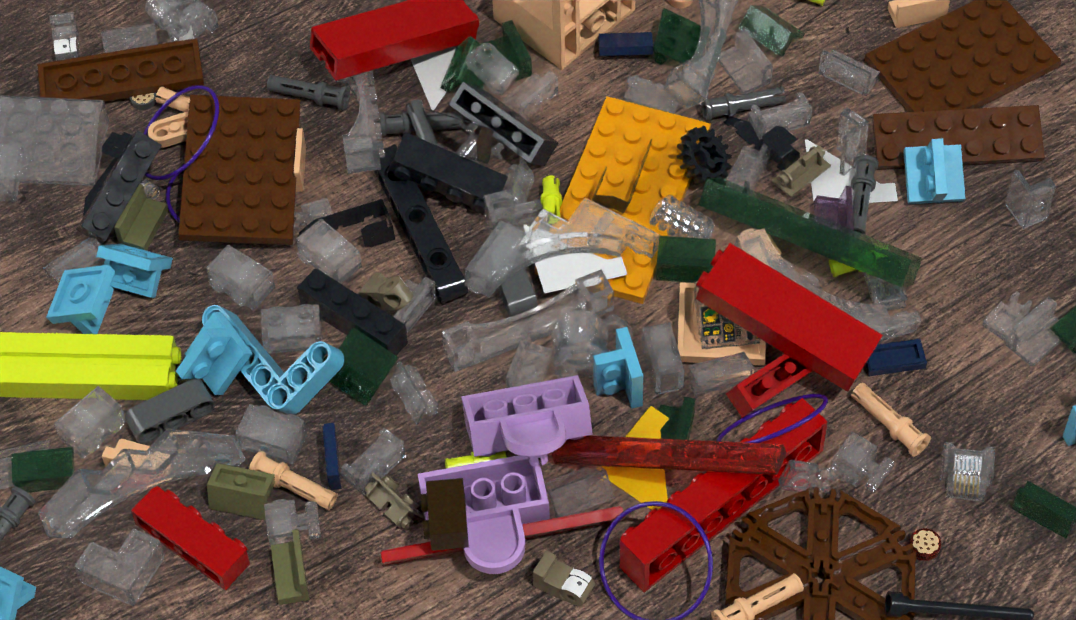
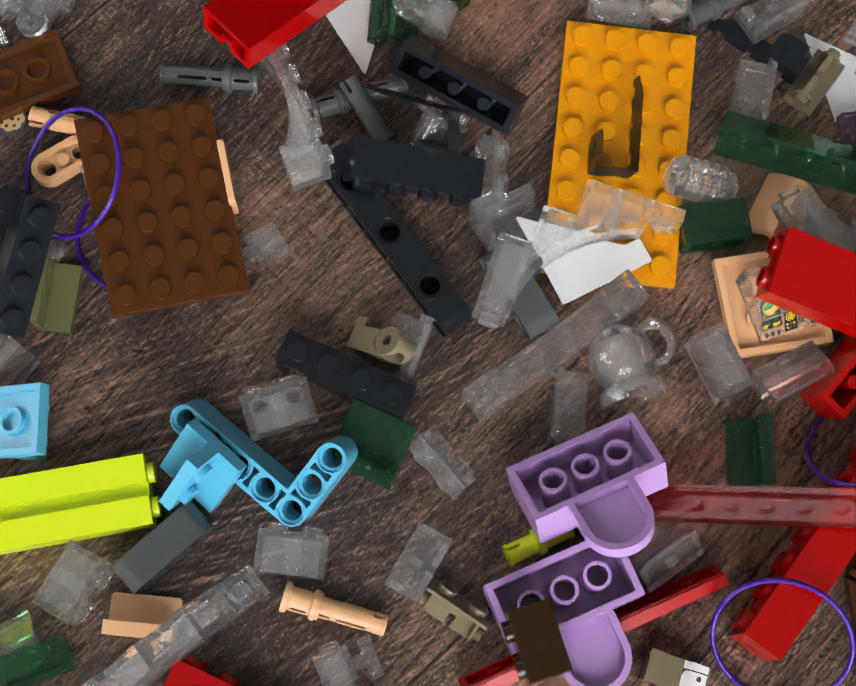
camera: 20 degrees left, 20 degrees up
(134, 268) = (67, 362): medium azure bracket -> none
(239, 490) = (276, 637): olive panel -> none
(240, 278) = (199, 352): clear brick -> none
(328, 251) = (294, 297): clear brick -> none
(331, 456) = (370, 568): dark blue tile -> none
(356, 215) = (348, 258): black piece -> none
(532, 94) = (476, 33): clear panel -> none
(551, 198) = (539, 175): neon yellow pin -> none
(619, 370) = (684, 392): medium azure bracket -> none
(643, 483) = (722, 468): yellow sticker -> none
(704, 156) = (704, 86): black gear -> none

